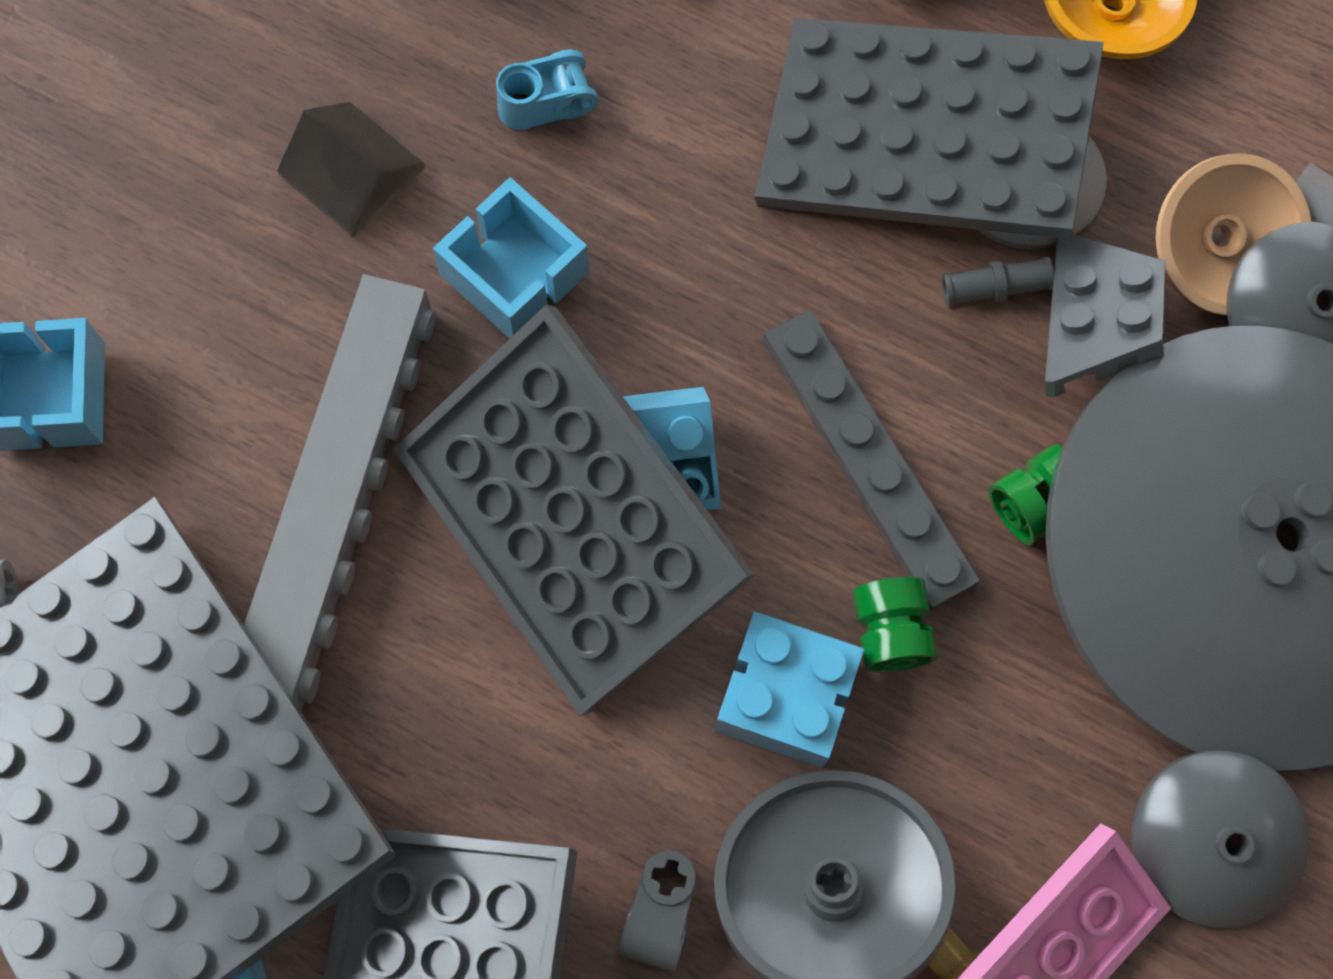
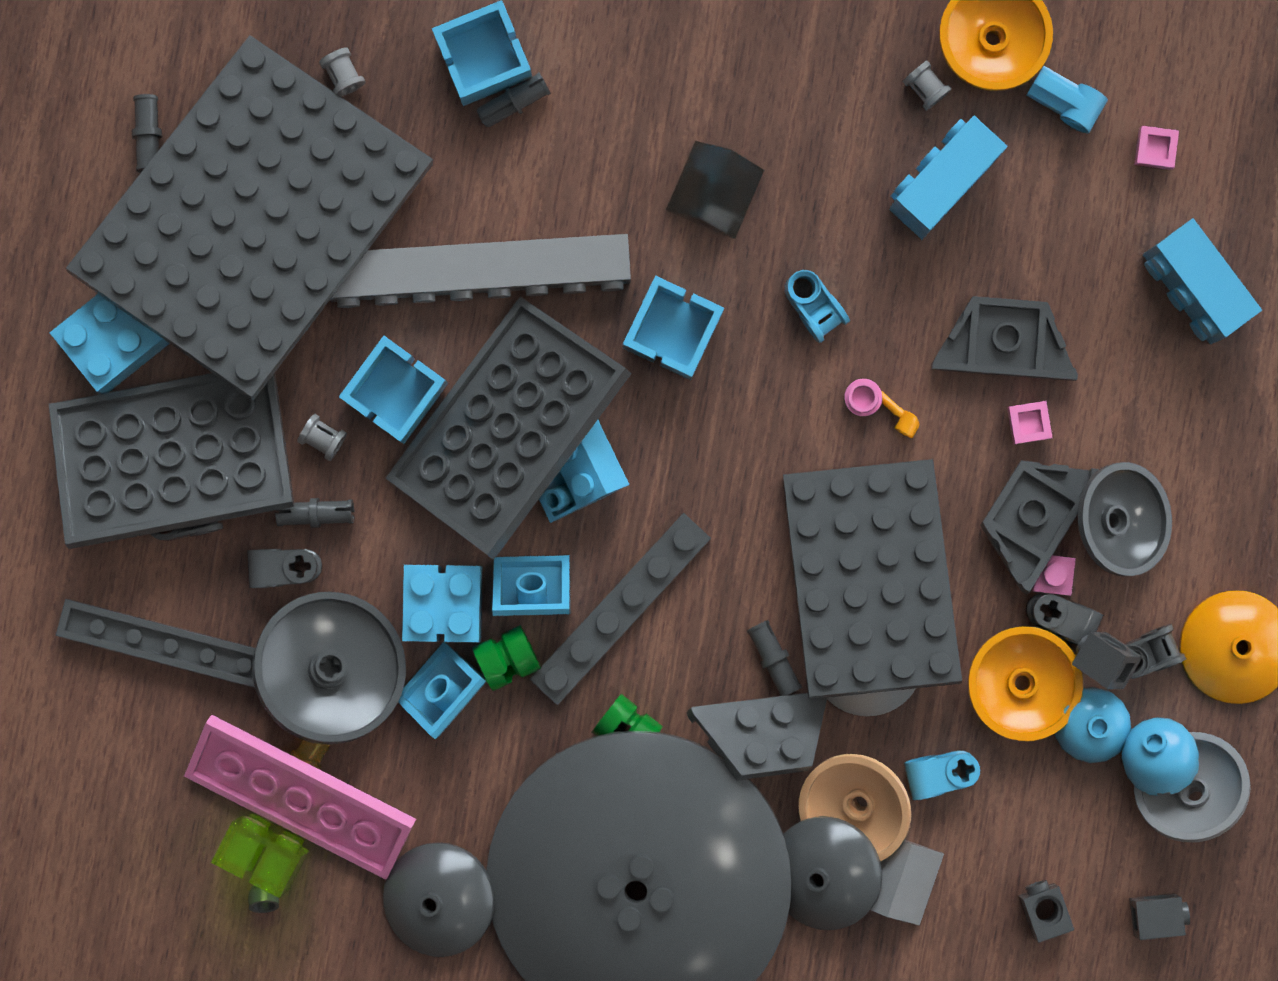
camera: 70 degrees right, 15 degrees up
(123, 373) = (513, 100): none -> dark grey axle
(459, 659) = (393, 389): none -> medium azure piece
(489, 787) = (322, 437): none -> light grey bush
(596, 832) = (317, 513): none -> dark grey pin
(687, 74) = (863, 397): none -> bright pink plate
(736, 32) = (908, 421): none -> light orange hand
(803, 561) = (531, 585): none -> medium azure slope
(916, 731) = (441, 690): none -> medium azure slope
(1207, 120) = (933, 774): none -> medium azure piece

